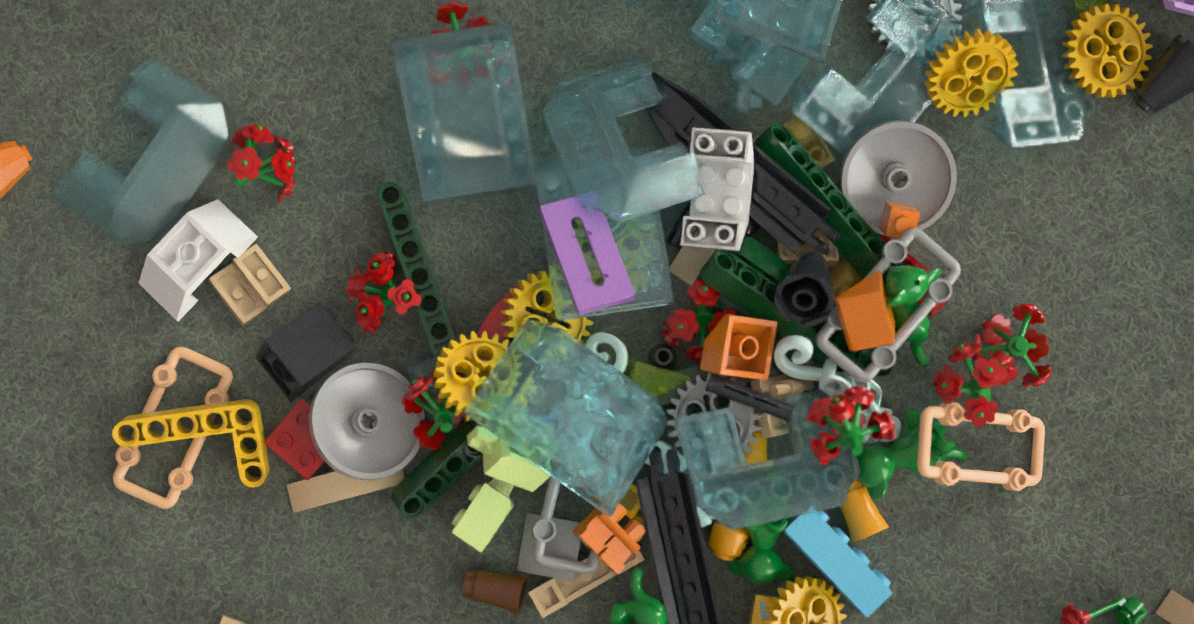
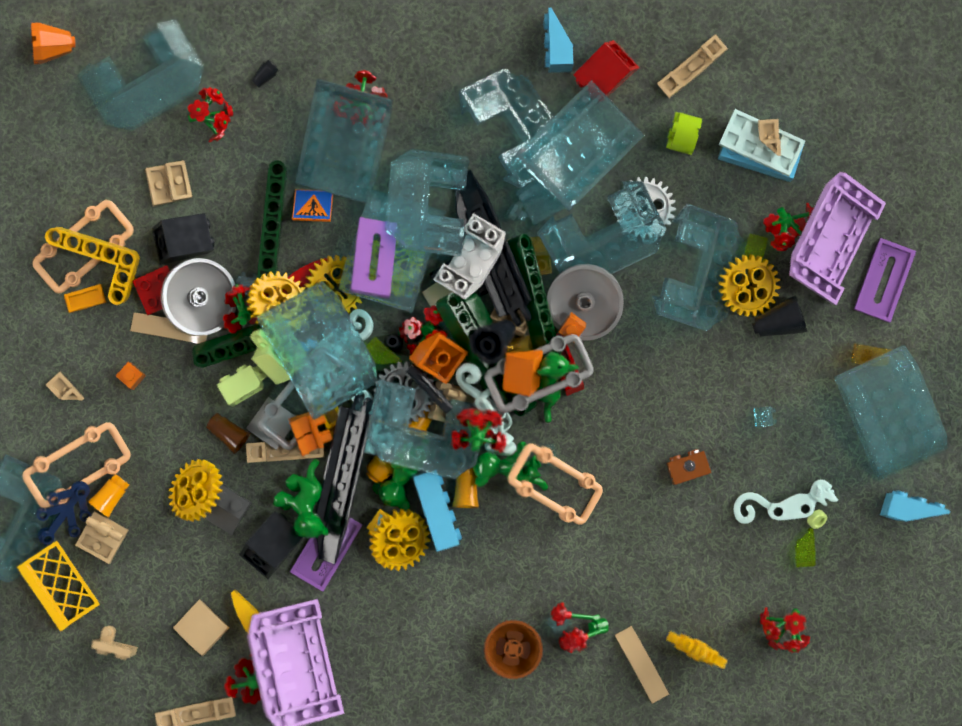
camera: 25 degrees right, 0 degrees up
(191, 254) = (142, 148): white slope -> none
(209, 497) = (85, 298): none -> light orange tile
(310, 73) = (265, 73): none -> black cone
(324, 574) = (130, 375): none -> orange brick
(372, 307) = (233, 230): red plant -> none
(462, 222) = (312, 205): none -> piece
(970, 72) = (658, 259): yellow gear -> none
(986, 373) = (575, 443): red plant -> none
(1030, 346) = (617, 441): red plant -> none
(1145, 337) = (688, 467): none -> dark orange piece

